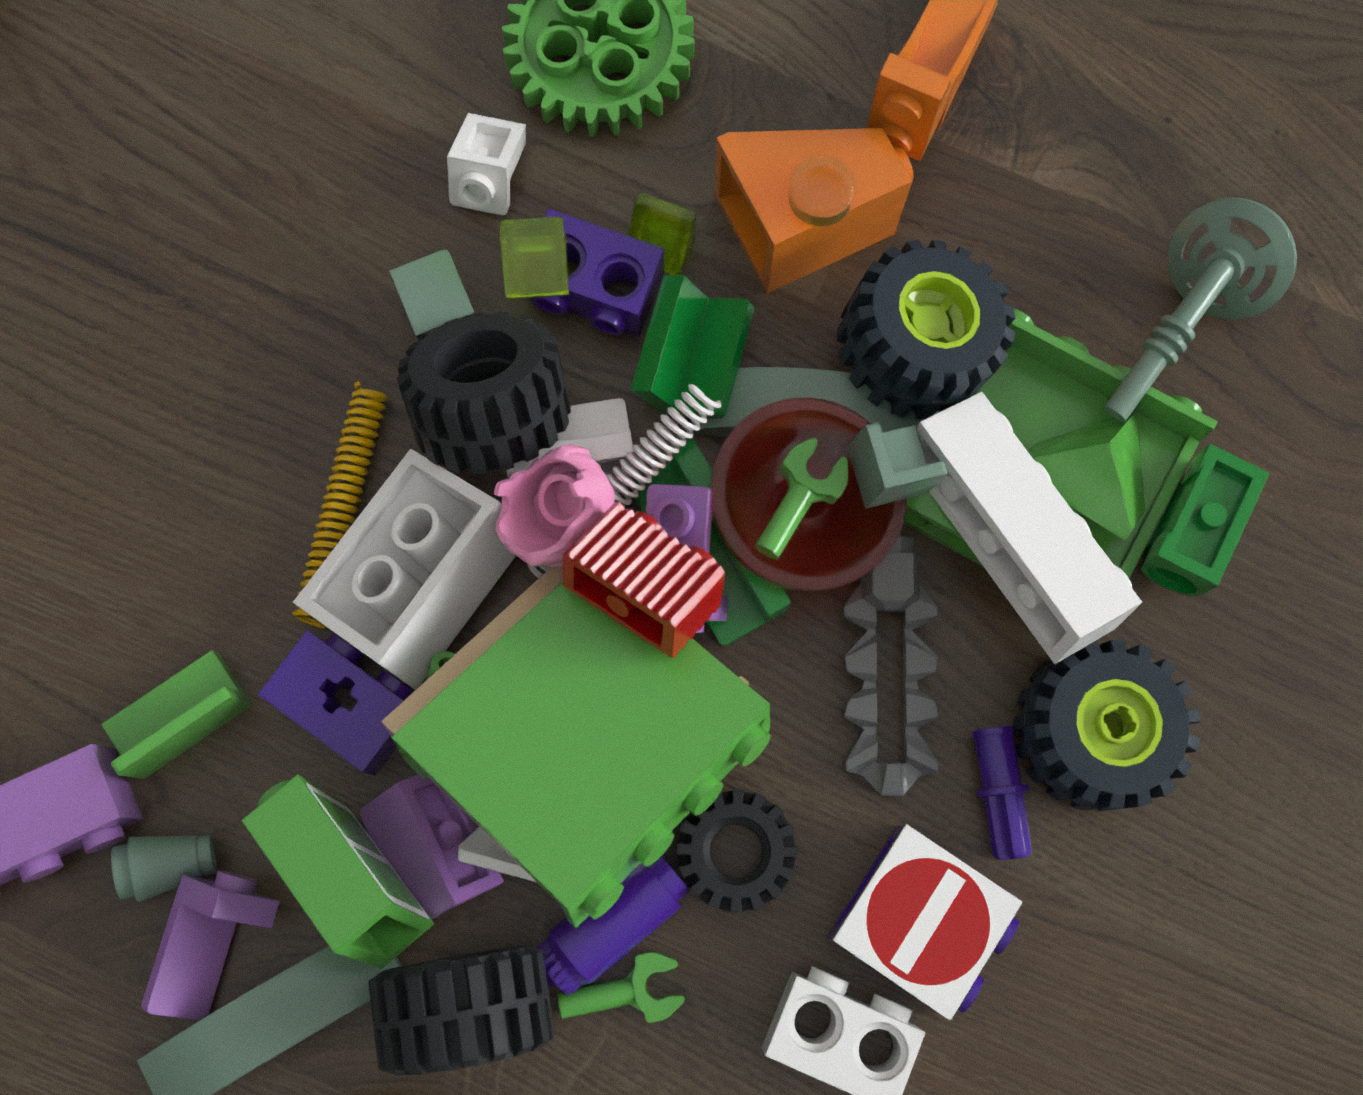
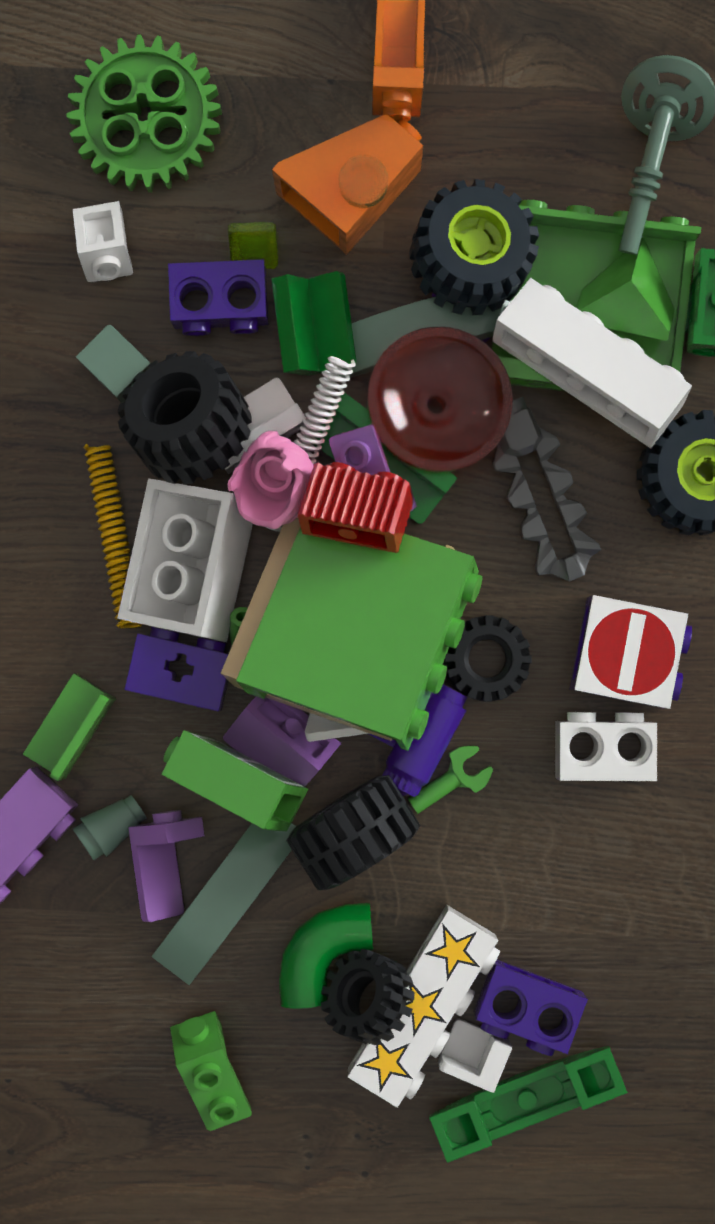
camera: 20 degrees left, 10 degrees up
(534, 257) = (177, 307): clear neon green slope -> none
(801, 494) = (436, 402): bright green bar -> none
(892, 465) = (489, 357): sand green panel -> none
(1002, 792) = (649, 545): dark purple axle -> none

